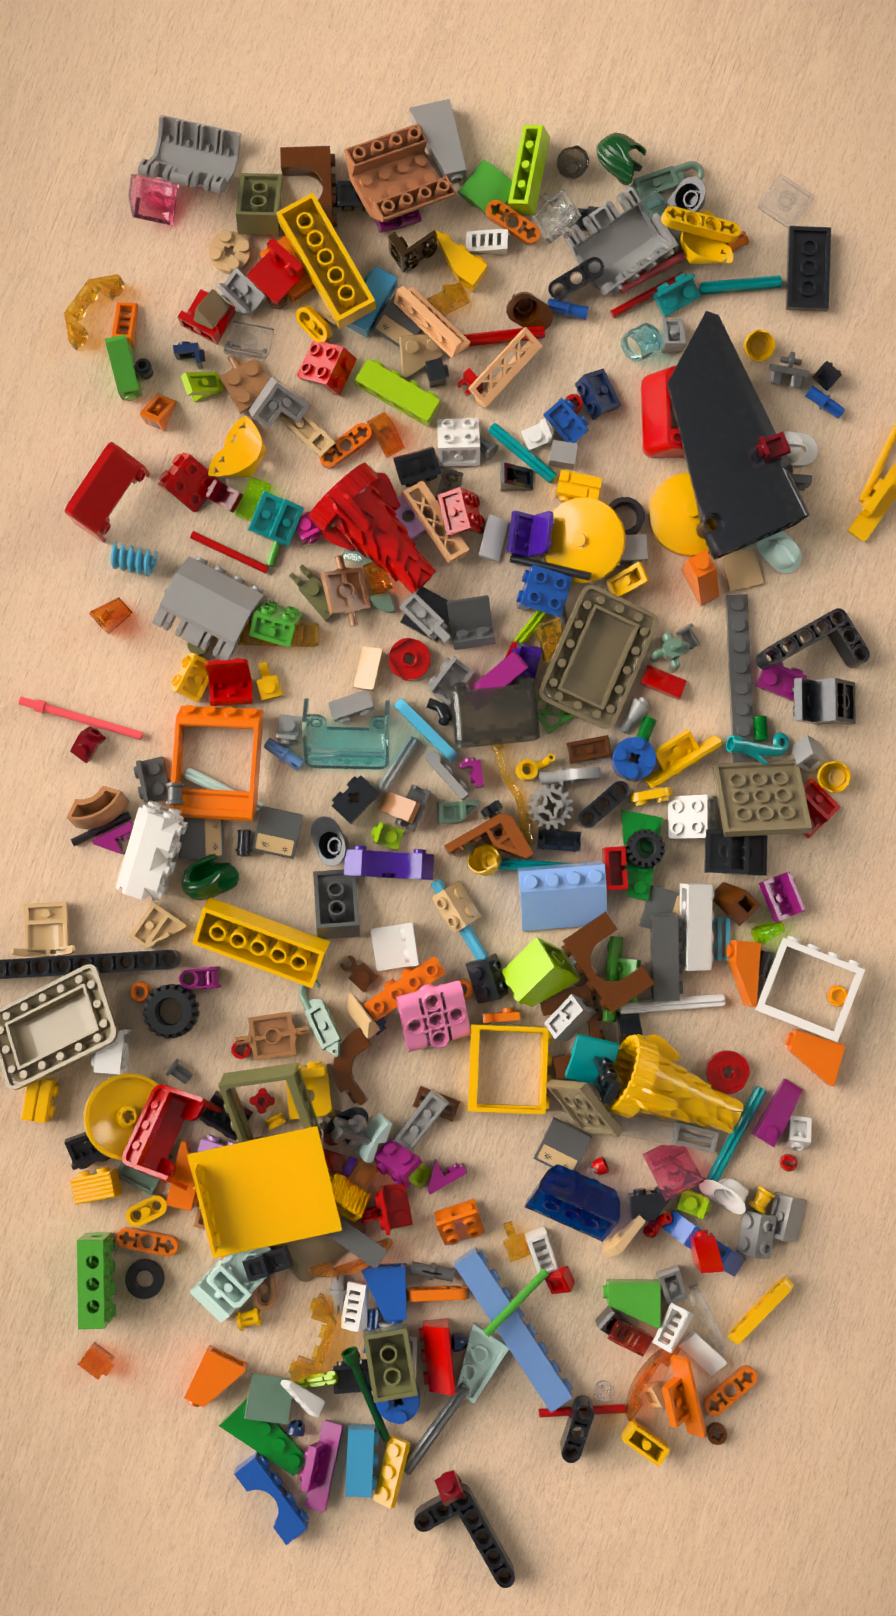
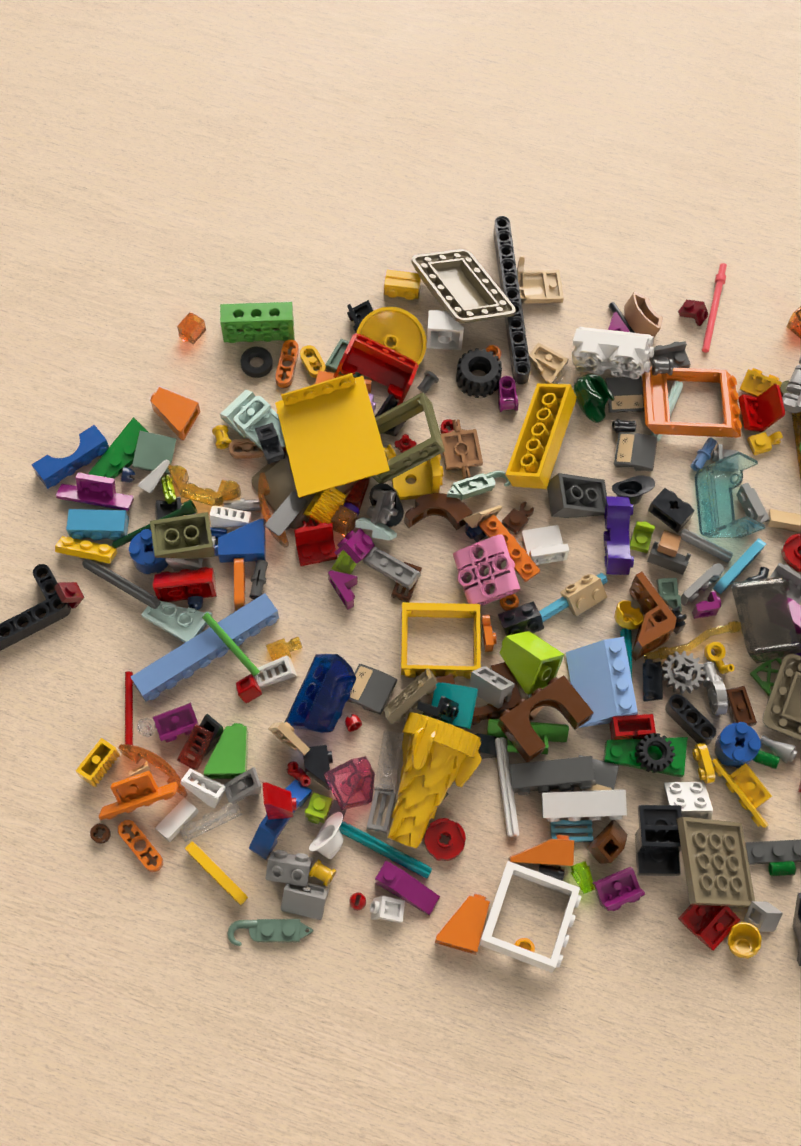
camera: 85 degrees right, 20 degrees down
(96, 1186) = (333, 323): yellow brick -> none
(459, 1222) = (301, 600): orange bracket -> none
(577, 1438) = (105, 699): black beam -> none
(600, 1358) = (175, 722): none -> magenta bracket
(738, 745) = (761, 862): teal plant -> none
(817, 1252) = (270, 930): none -> sand green plate

